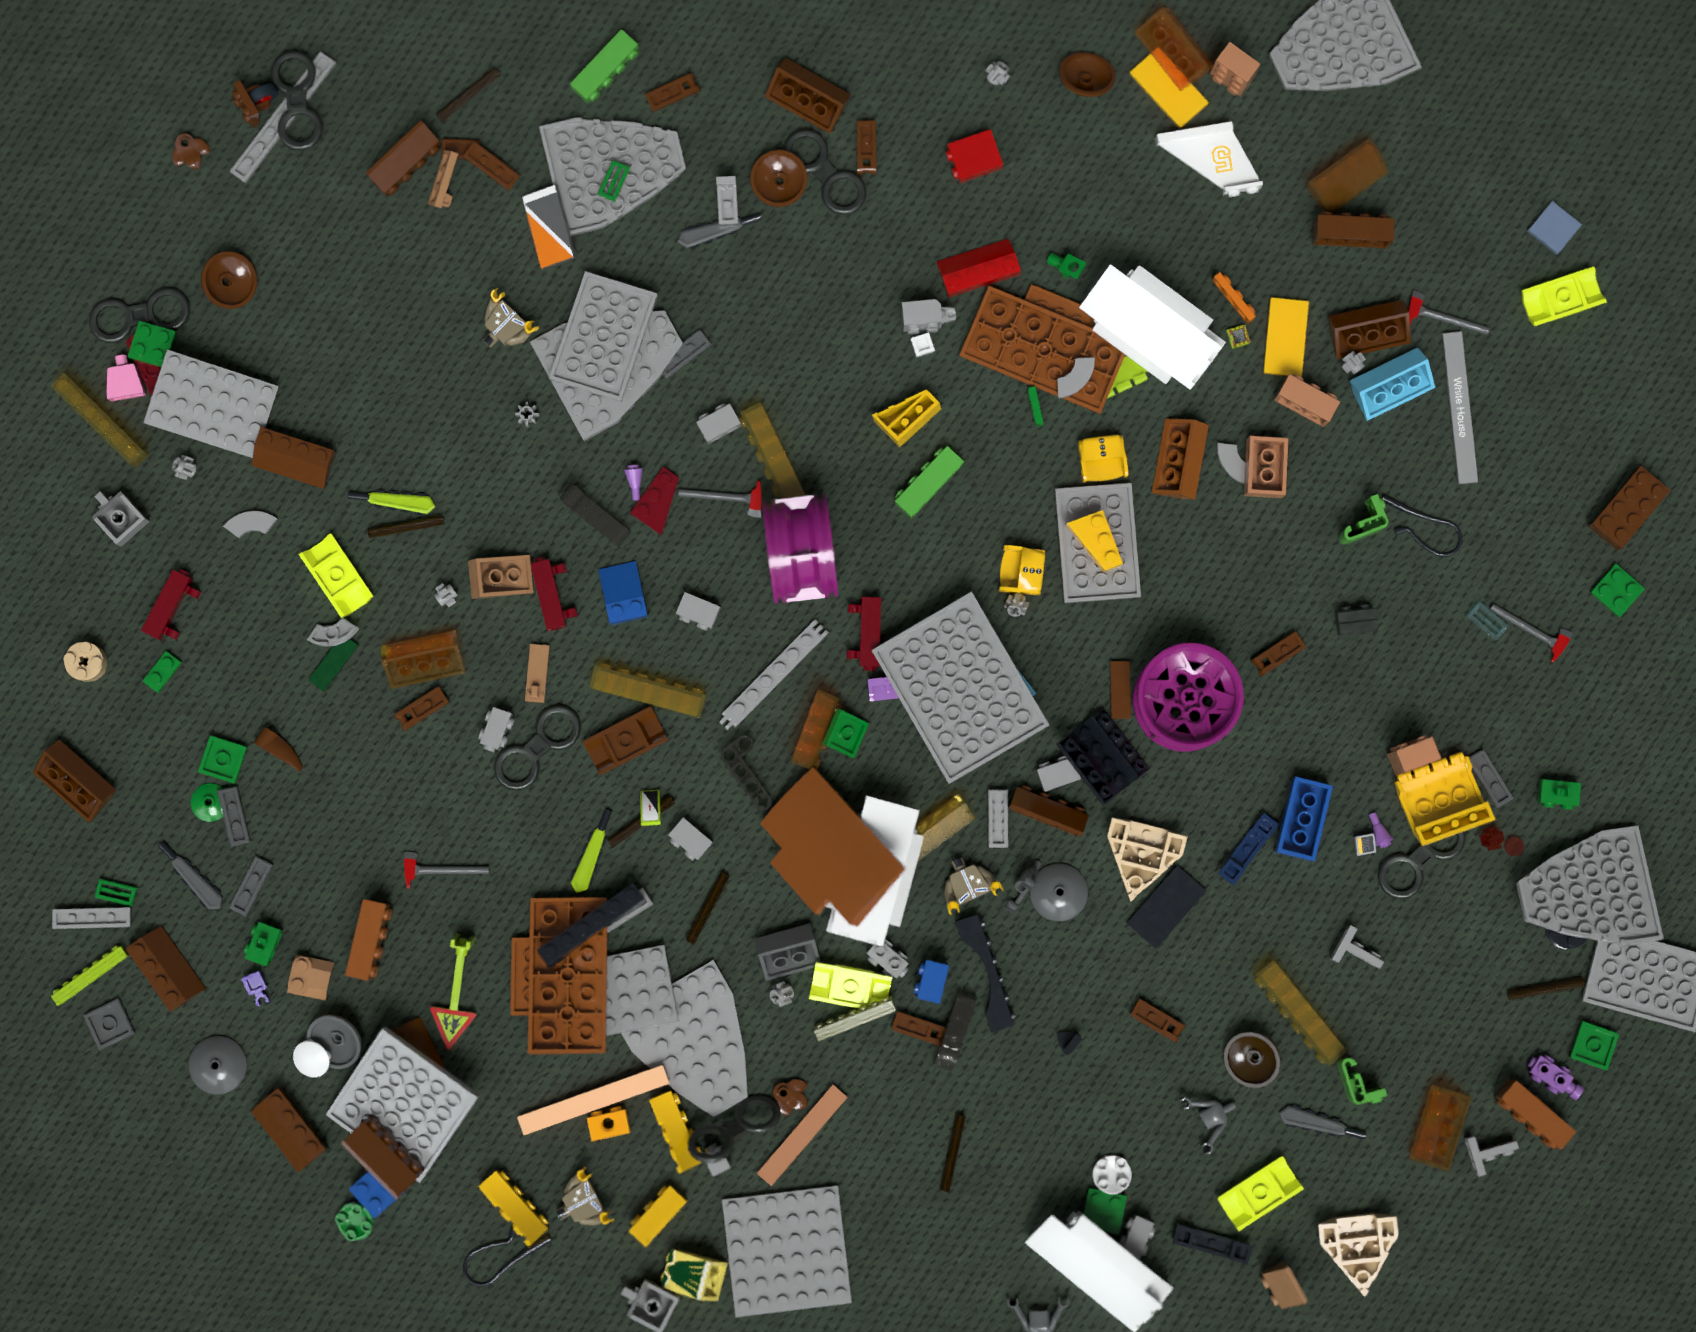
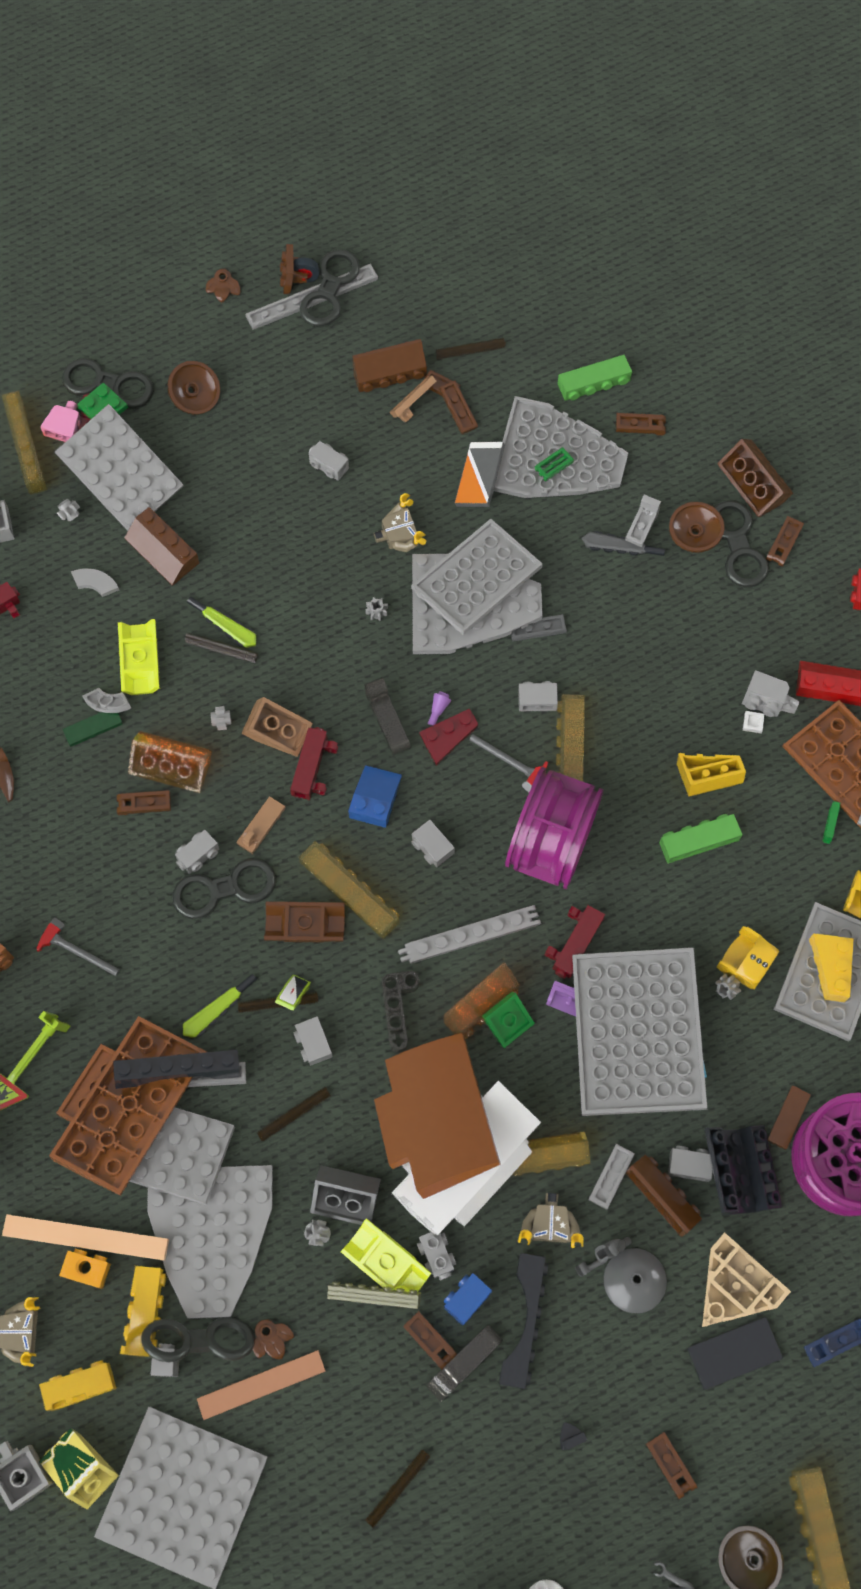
camera: 30 degrees right, 15 degrees down
(395, 287) = (328, 460): none -> light grey brick

